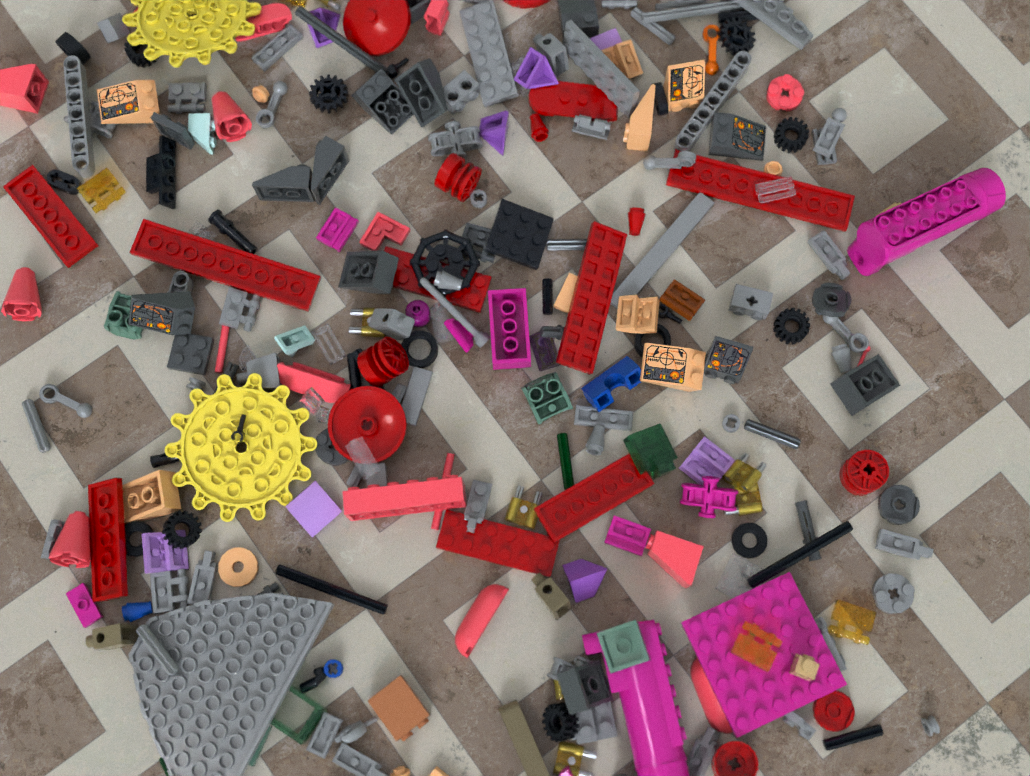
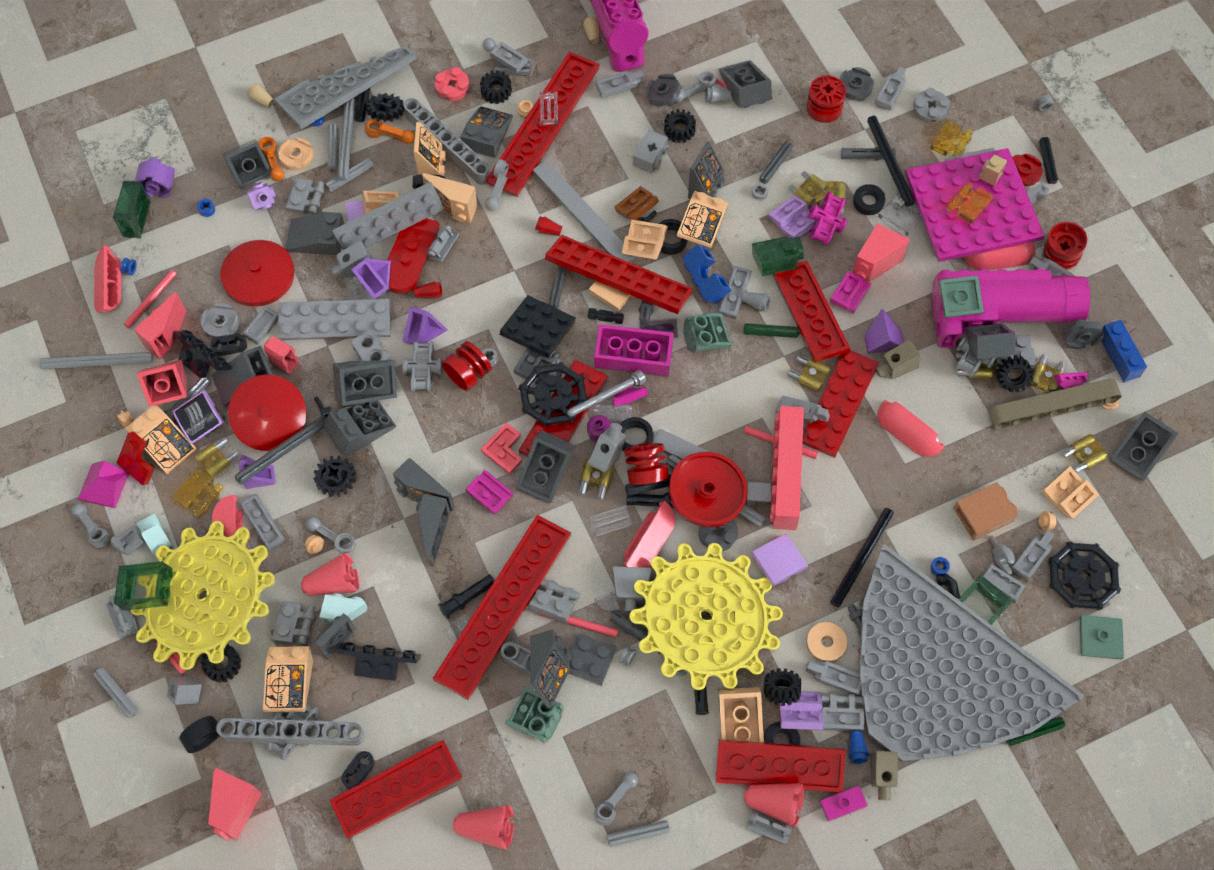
camera: 80 degrees left, 10 degrees down
(97, 187) = (375, 733): clear yellow plate -> none
(157, 649) = (903, 725): light grey axle -> none
(240, 428) = (692, 610): black hand -> none
(294, 340) = (602, 549): light aqua slope -> none
(313, 402) = (673, 539): clear plate -> none
(362, 457) = (743, 496): clear hinge -> none
(447, 281) = (576, 391): light grey cone -> none

